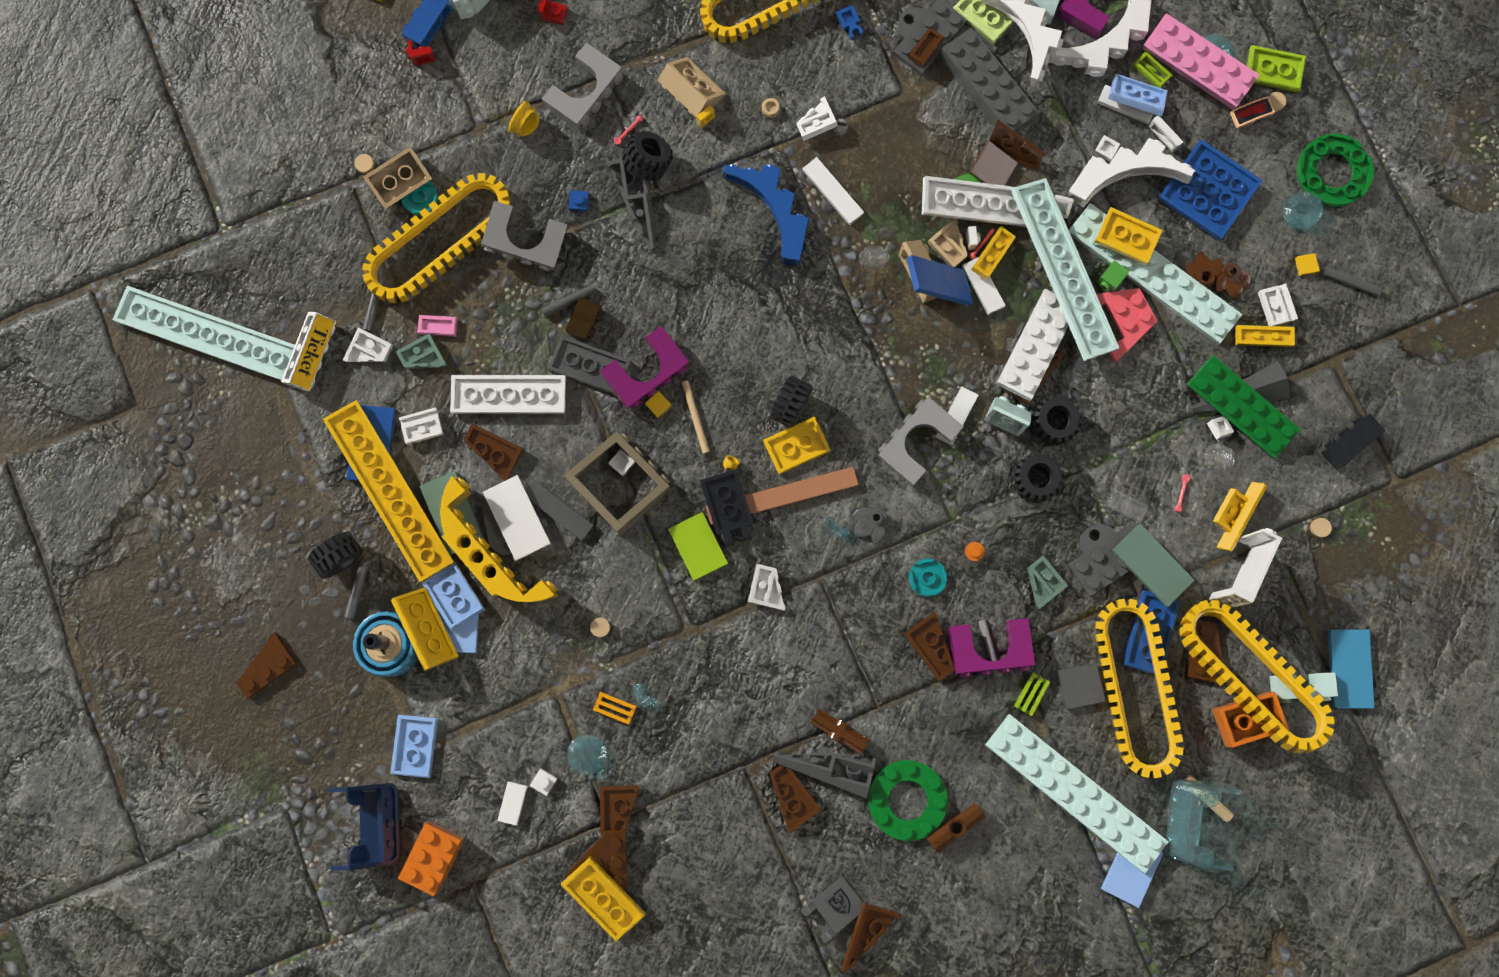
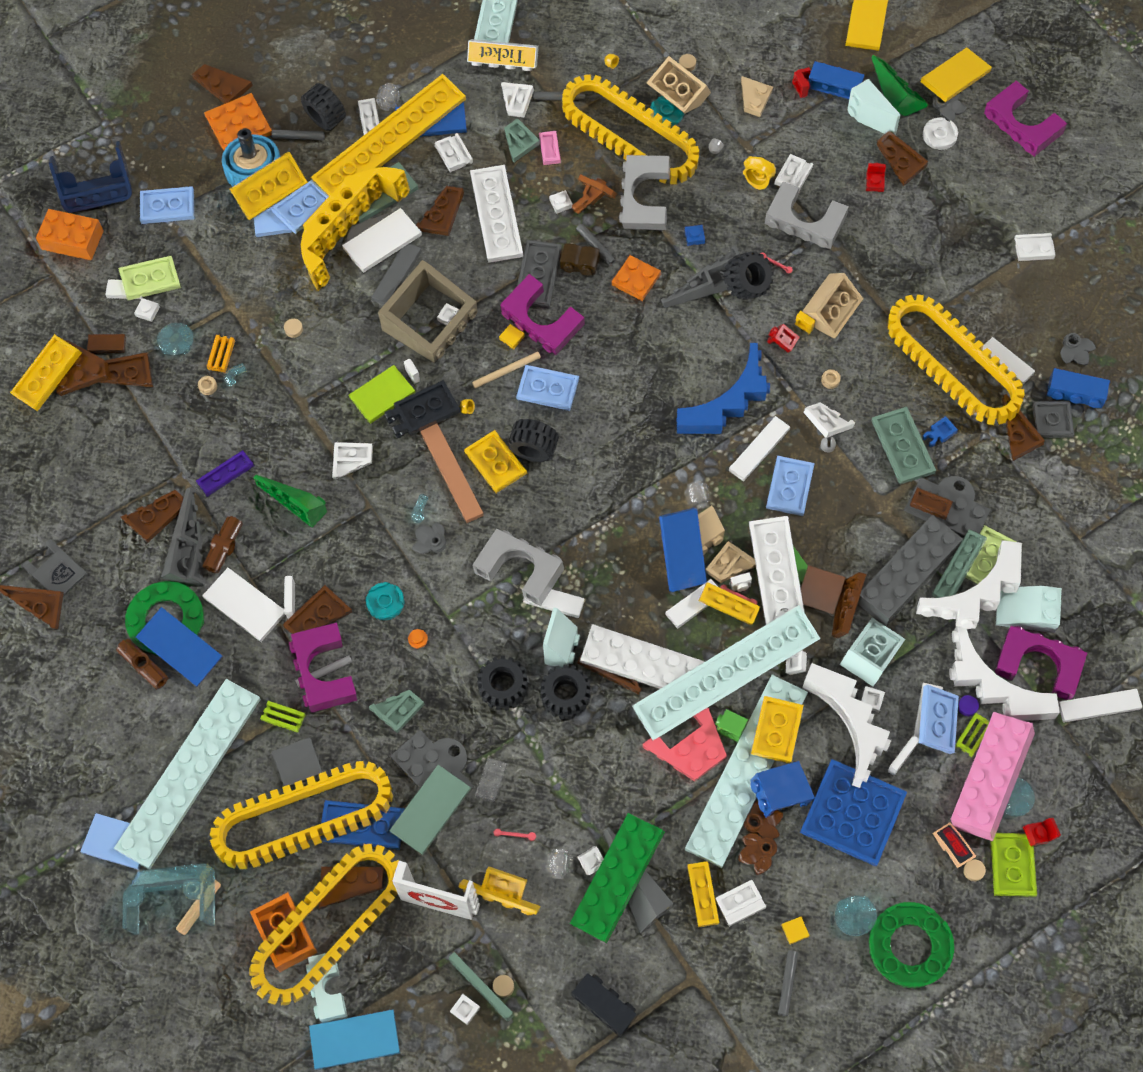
camera: 80 degrees right, 15 degrees down
(324, 654) = (236, 115): none -> orange plate
(333, 484) = (388, 96): none -> clear head
(342, 241) = (611, 60): none -> yellow hinge
(352, 510) = (368, 114): none -> white tile
(423, 105) = (755, 96): none -> tan wing
(477, 157) = (715, 146): none -> light grey hinge
(505, 775) = (149, 278): none -> yellowish green tile
(508, 326) = (560, 202): none -> white plate
(509, 290) = (592, 193): none -> dark orange piece
(528, 87) = (794, 172): none -> white plate
(576, 830) = (106, 343): none -> reddish brown tile
(616, 268) = (636, 277): none -> orange plate
(649, 726) = (207, 385): none -> tan tile
(680, 511) = (412, 371): none -> white tile
(717, 141) = (783, 337): none -> bracket
(724, 379) = (547, 387): none -> light blue tile
(756, 720) = (224, 473): none -> dark purple tile
(811, 643) = (299, 502): none -> green wedge
(857, 58) = (903, 445): none -> sand green plate
(877, 171) = (790, 485): none -> light blue tile
(907, 717) = (244, 604): none -> white tile
(908, 670) = (289, 596): none -> white tile
(946, 787) = (179, 646): none -> blue tile
(993, 39) = (959, 565): none -> sand green tile
(1062, 136) = (872, 652): none -> light aqua slope
(1125, 67) = (968, 705): none -> dark purple tile
(1185, 244) = (781, 788): none -> blue panel
(1252, 36) = (1042, 832): none -> red bracket
(1322, 547) = (481, 987): none -> sand green tile
(1339, 564) = (465, 1009): none -> white plate

